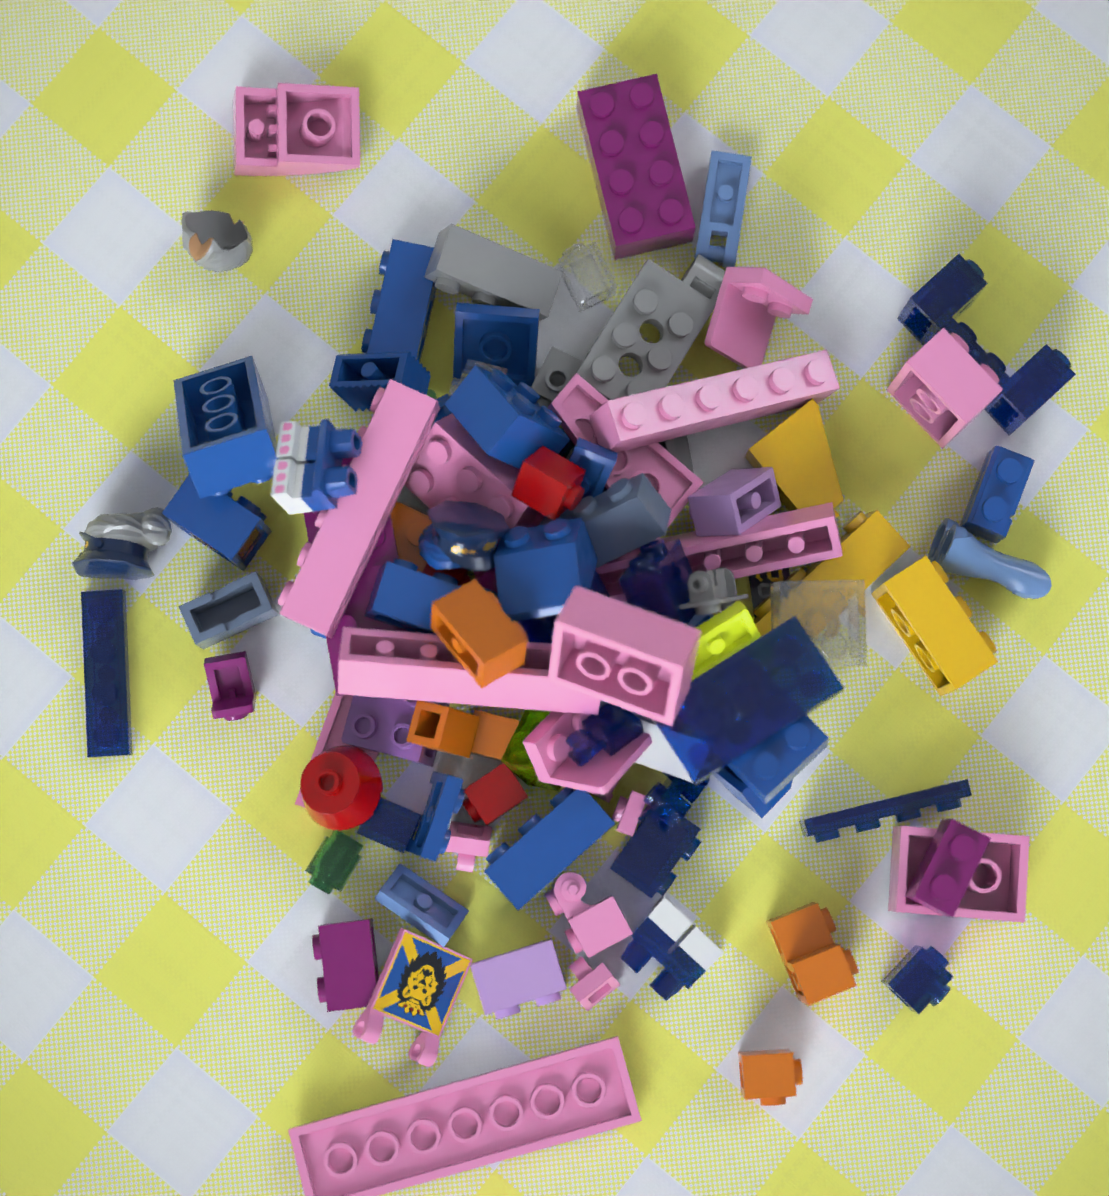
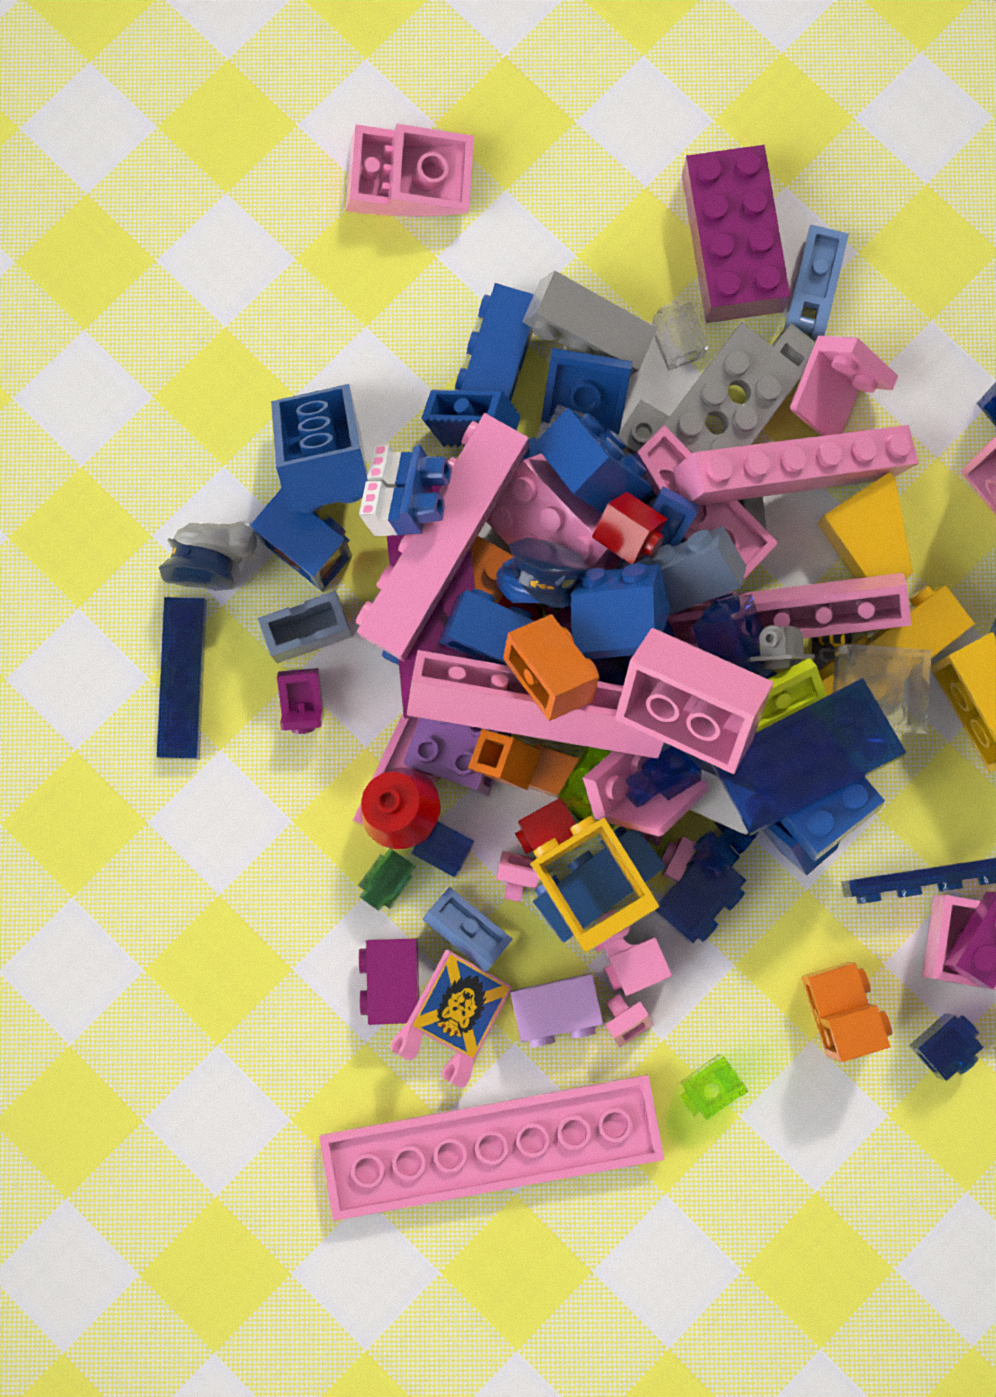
camera: 10 degrees right, 0 degrees up
(215, 240) = (323, 270): light grey hair -> none
(432, 834) = (498, 830): blue plate -> none
(497, 819) = (618, 920): none -> yellow window
(654, 938) = (717, 1010): clear blue hips -> none
(687, 1027) = (714, 1071): none -> clear neon green brick
(734, 502) = (806, 564): lavender brick -> none
(769, 1075) = (793, 1127): orange brick -> none

